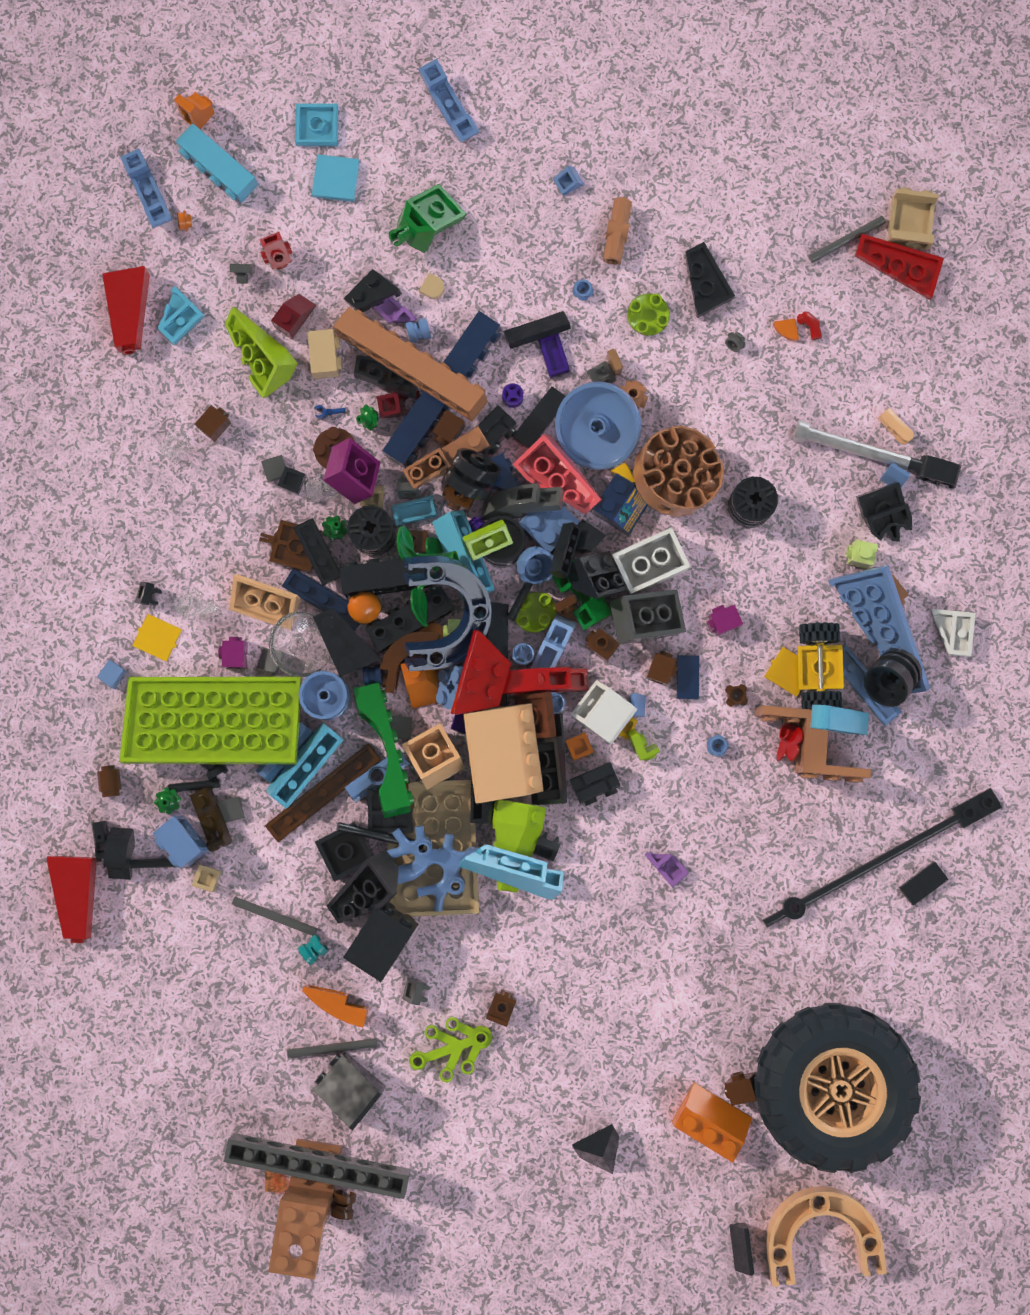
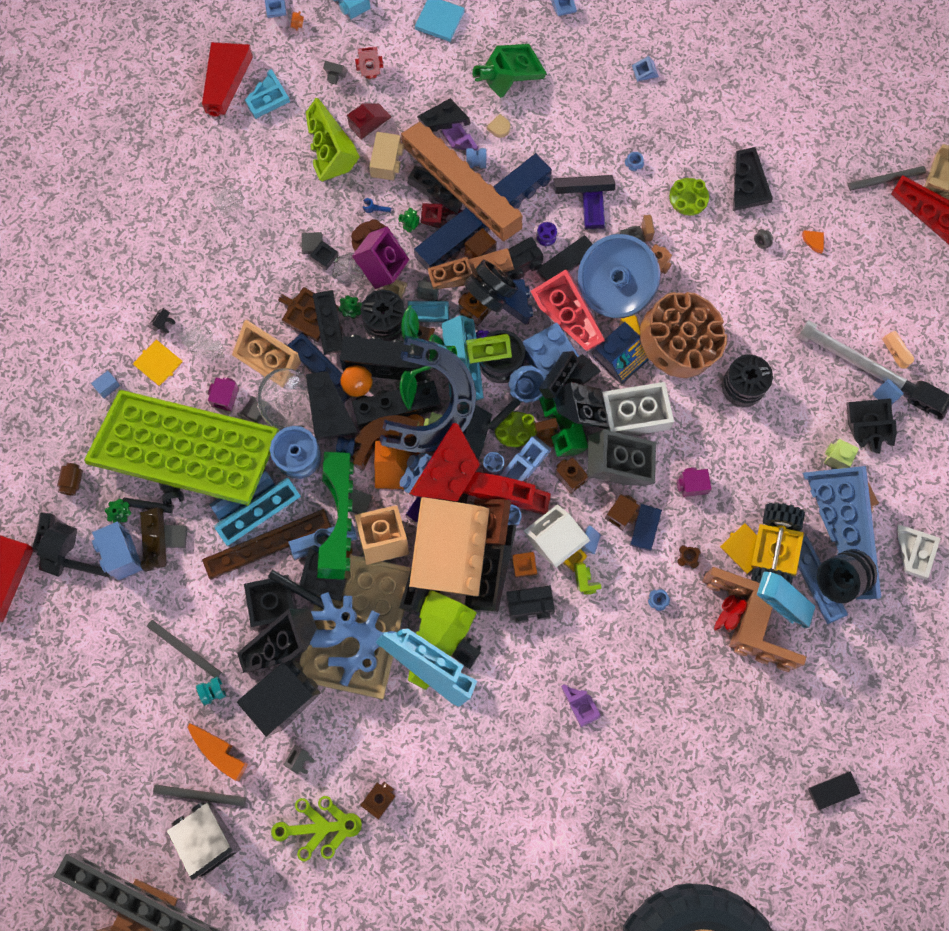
camera: 10 degrees right, 10 degrees down
(206, 878) = (130, 594): tan plate -> none
(213, 422) = (268, 189): reddish brown brick -> none
(275, 1182) = (100, 916): clear orange tile -> none
(522, 499) = (532, 321): dark grey slope -> none
(617, 231) = (678, 120): nougat piece -> none
(812, 322) = (839, 240): red arm -> none
(964, 814) = (889, 731): black bar -> none

